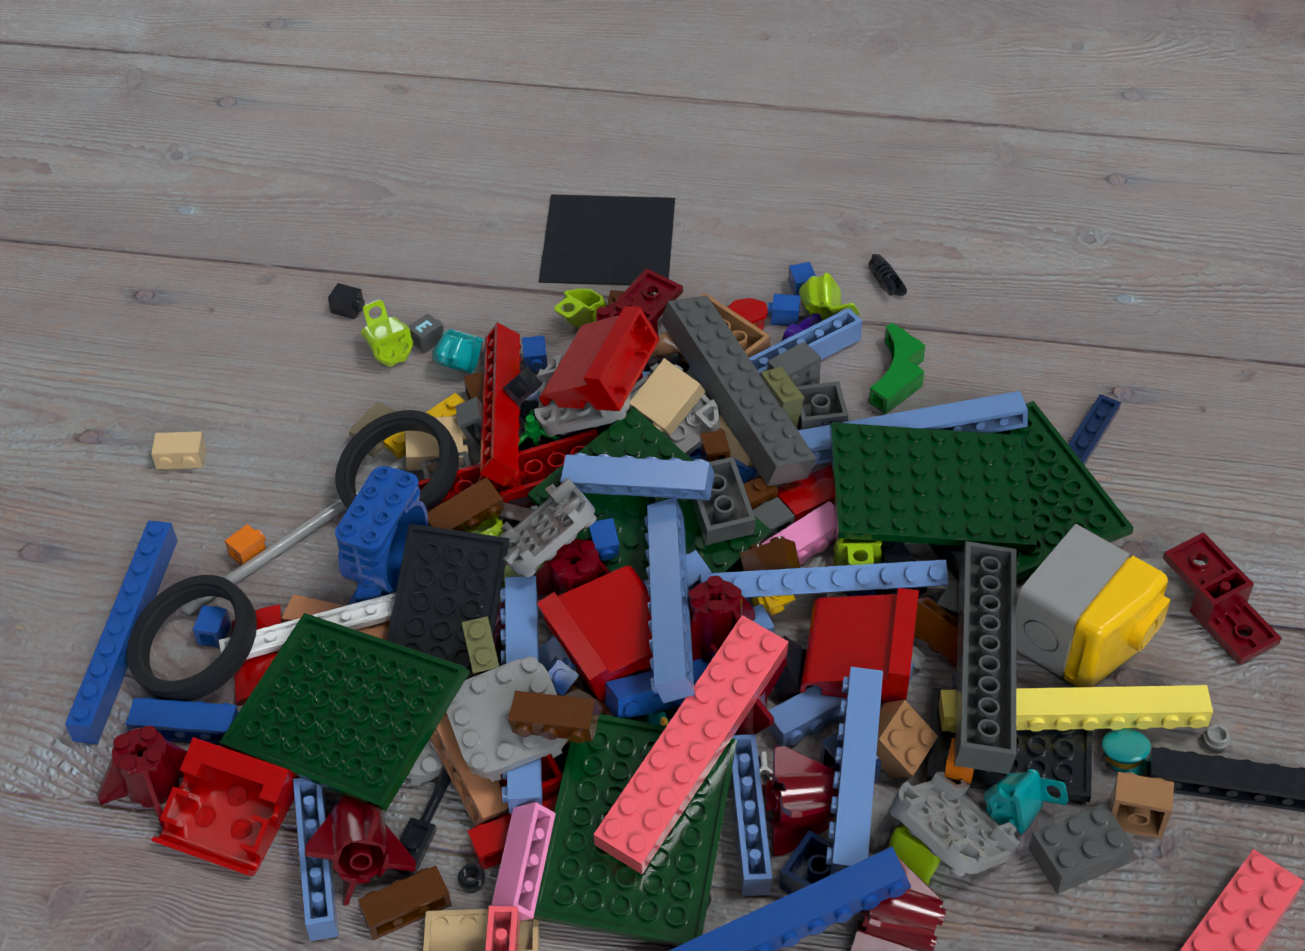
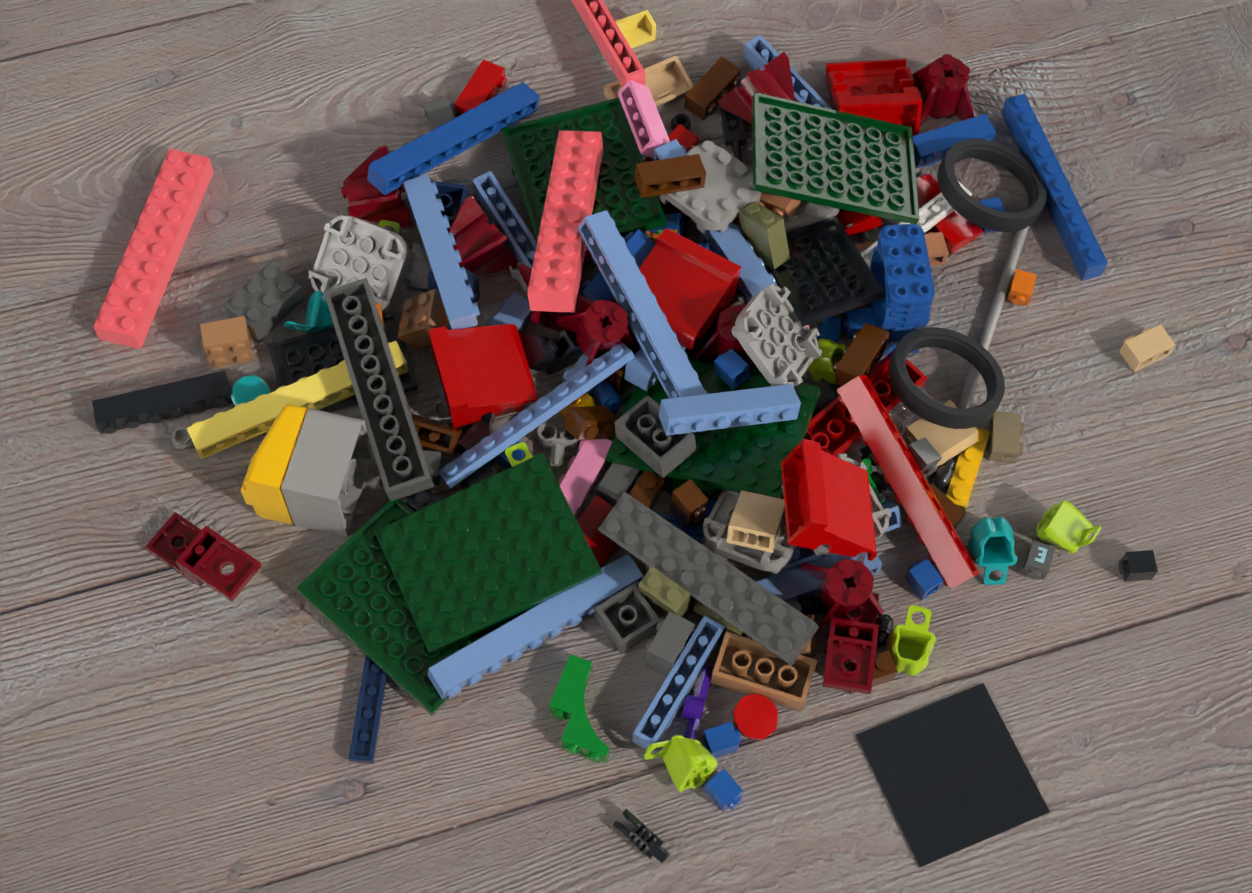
camera: 150 degrees right, 15 degrees up
(515, 512) = (821, 380): flat silver sticker -> none
(522, 386) = (894, 492): black brick -> none

